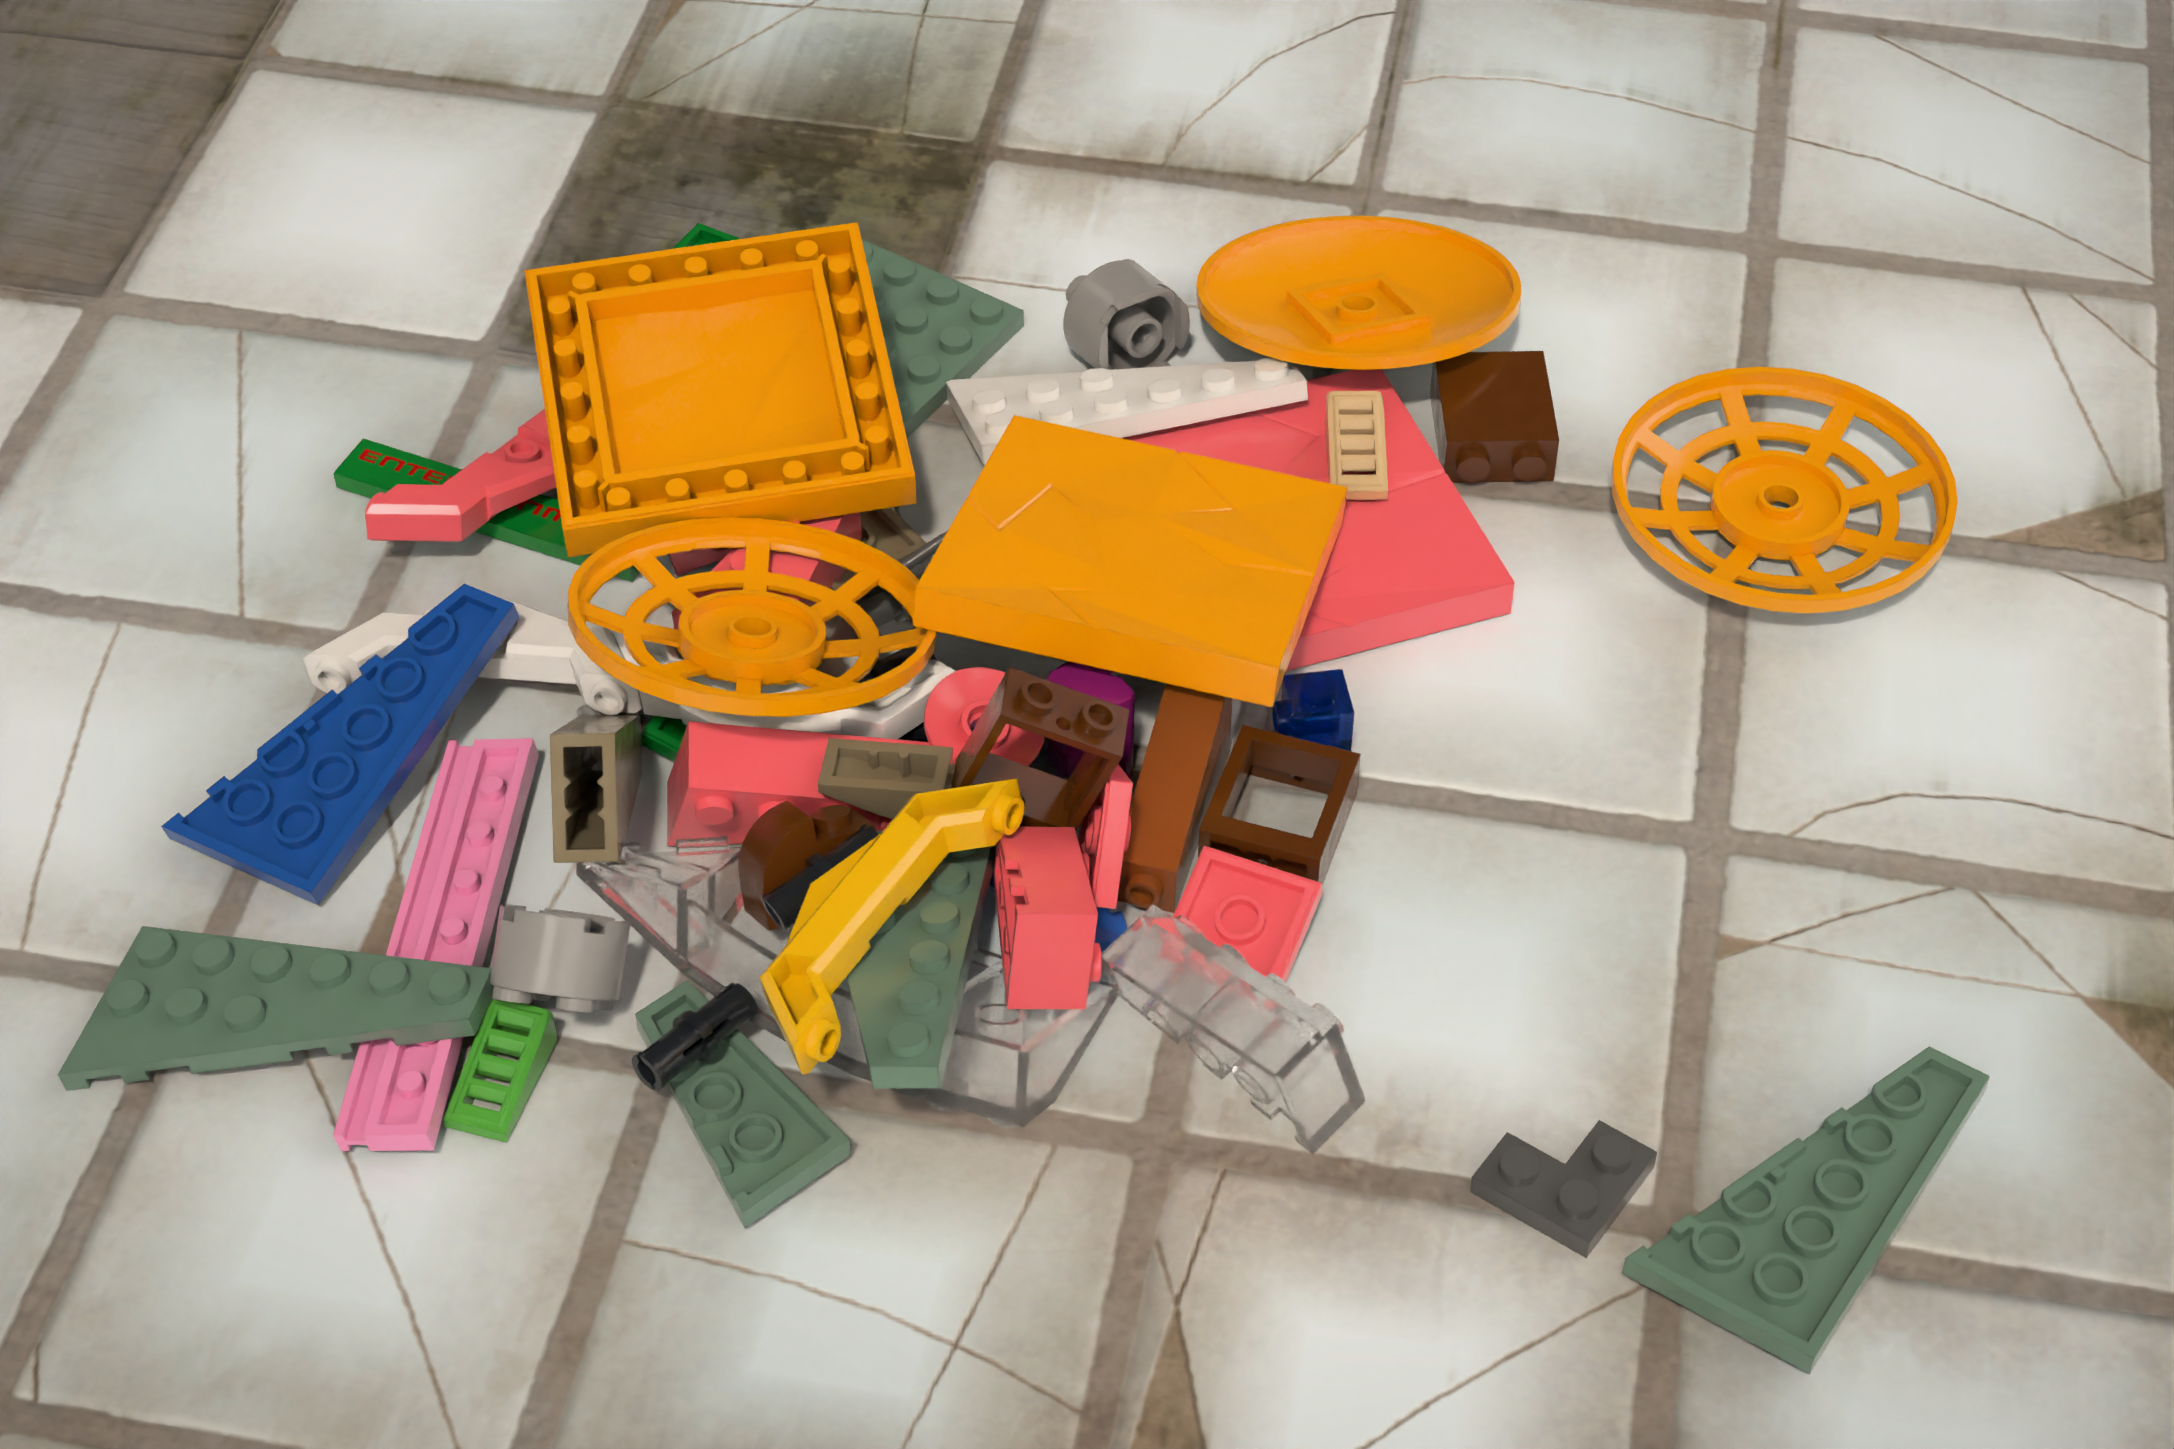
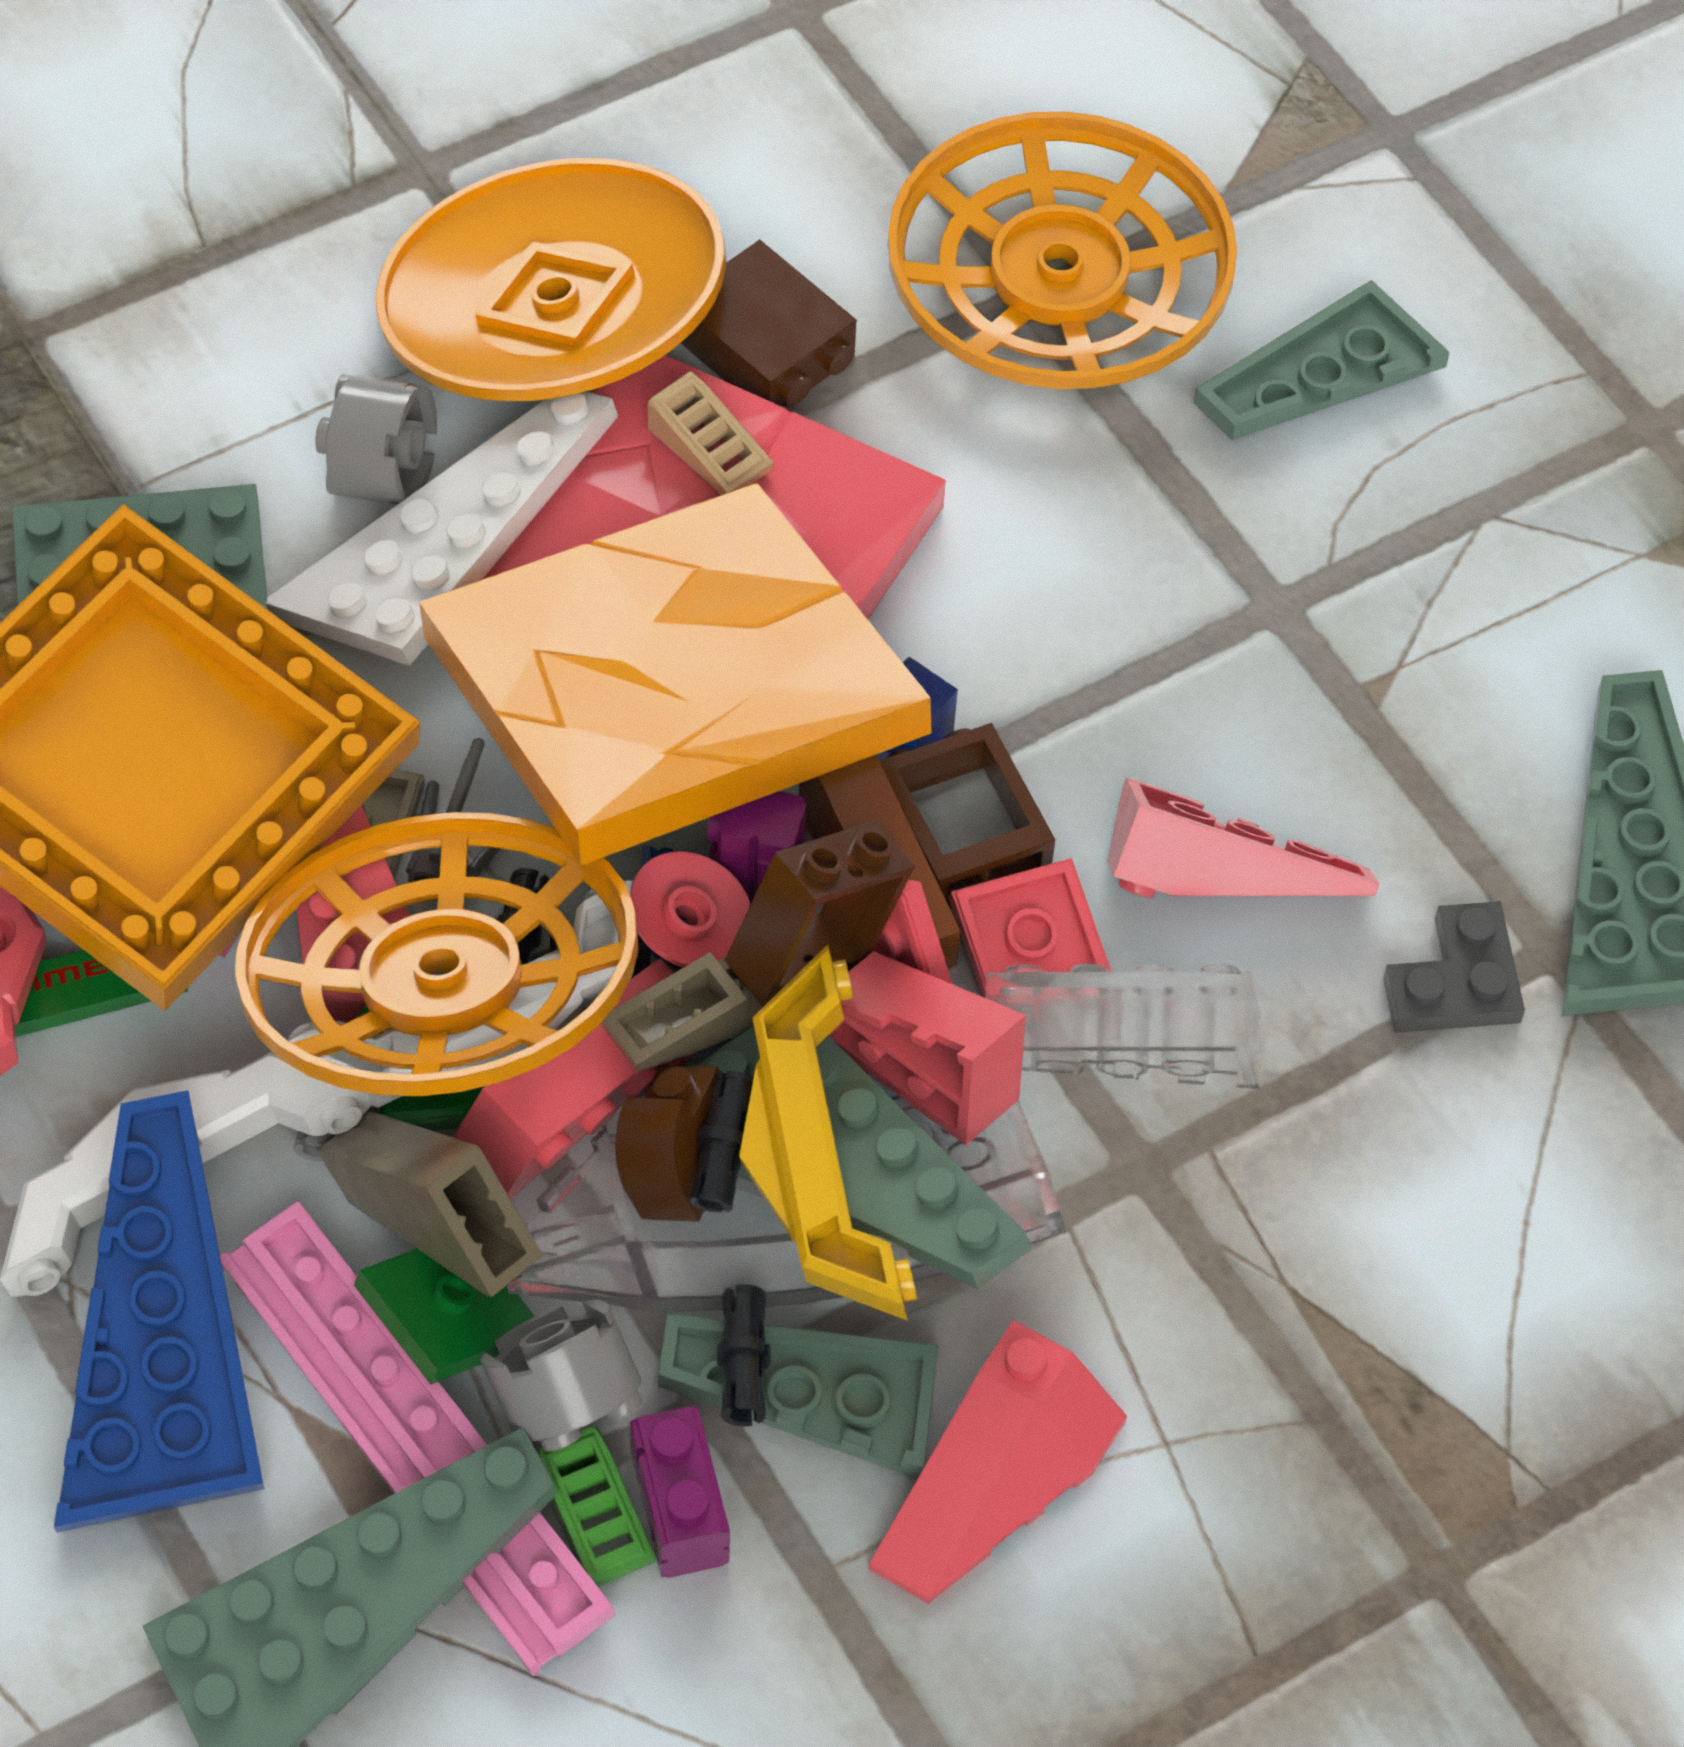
camera: 45 degrees left, 10 degrees up
(524, 870) = (437, 1314): none -> green plate
(558, 1099) = (679, 1491): none -> magenta brick
(824, 1246) = (1010, 1450): none -> coral wedge
(1432, 939) = (1180, 850): none -> coral wedge
(1941, 691) = (1324, 361): none -> sand green wing

